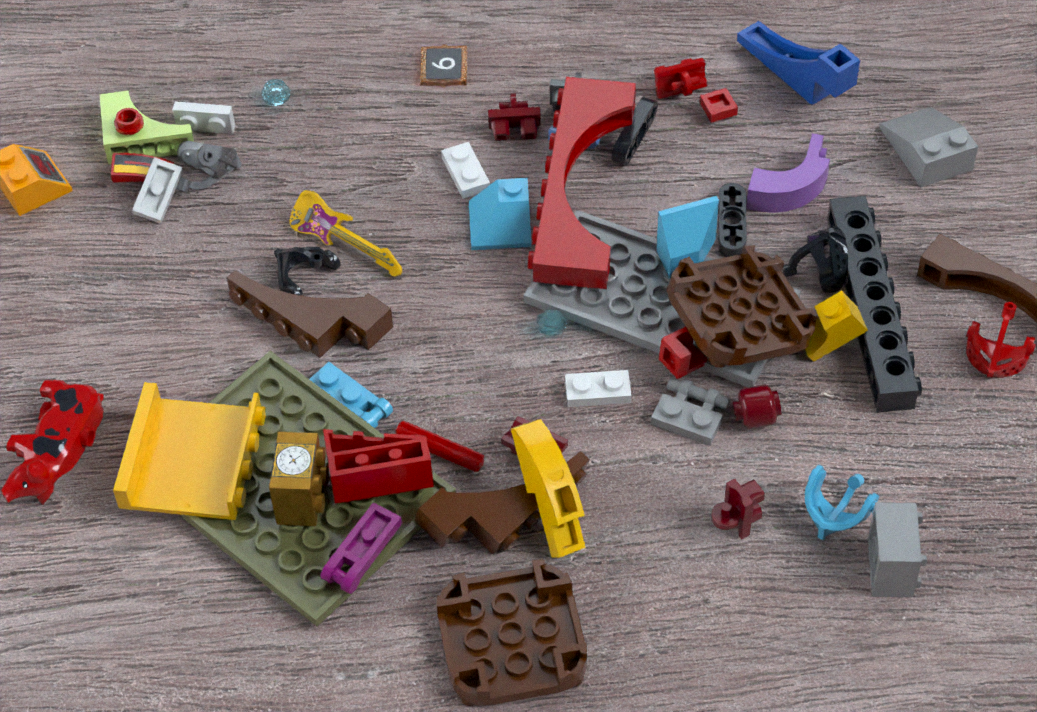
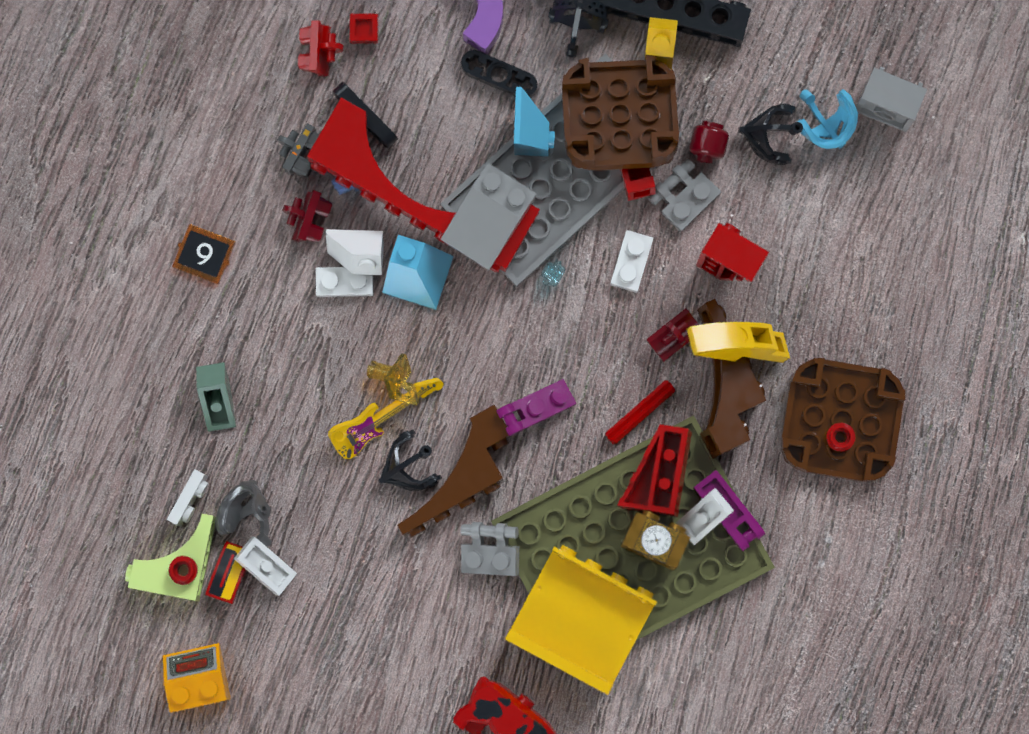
camera: 65 degrees left, 30 degrees up
(232, 358) = (489, 558): none -> light grey plate
(275, 92) = (170, 419): clear light blue plate -> none
(309, 106) = (215, 396): none -> sand green slope
(343, 518) = (705, 516): none -> white plate
(352, 394) = (559, 469): medium azure plate -> none
(386, 229) = (395, 379): none -> clear yellow bracket
(403, 348) = (537, 407): none -> magenta plate
(489, 621) = (846, 430): none -> red plate
(500, 161) = (357, 250): none -> white slope
(578, 224) = (488, 216): none -> light grey slope
(641, 437) = (731, 255): none -> red wedge
(739, 507) = (806, 202): dark red hips -> none
(811, 452) = (757, 130): none -> black helmet

